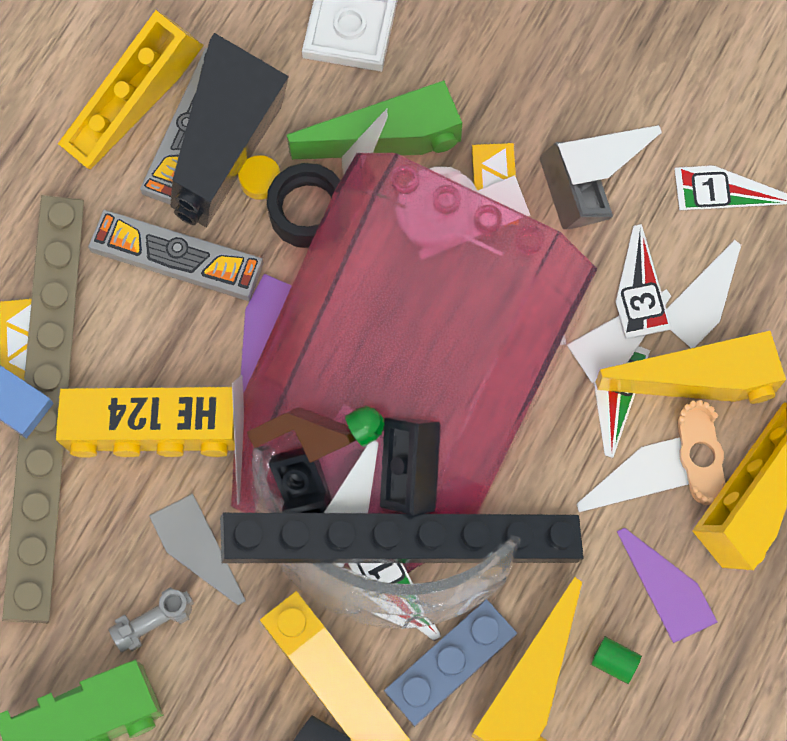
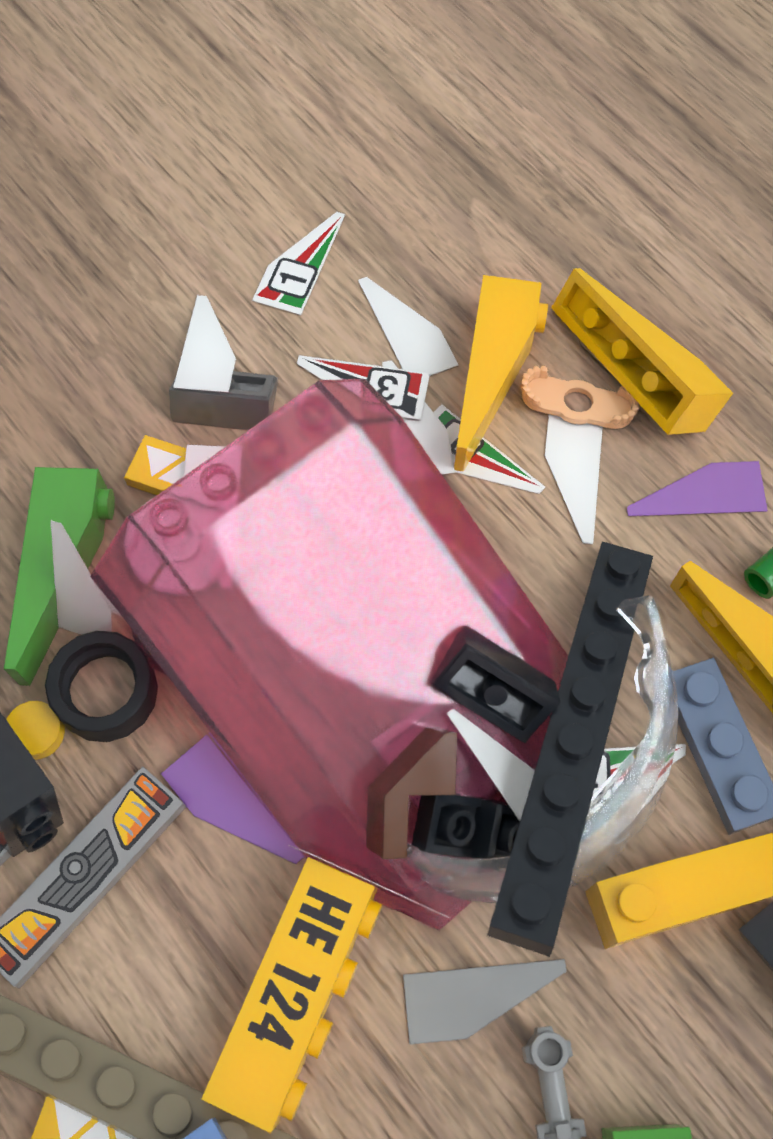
camera: 70 degrees left, 5 degrees down
(365, 424) = (432, 709): green hinge -> none

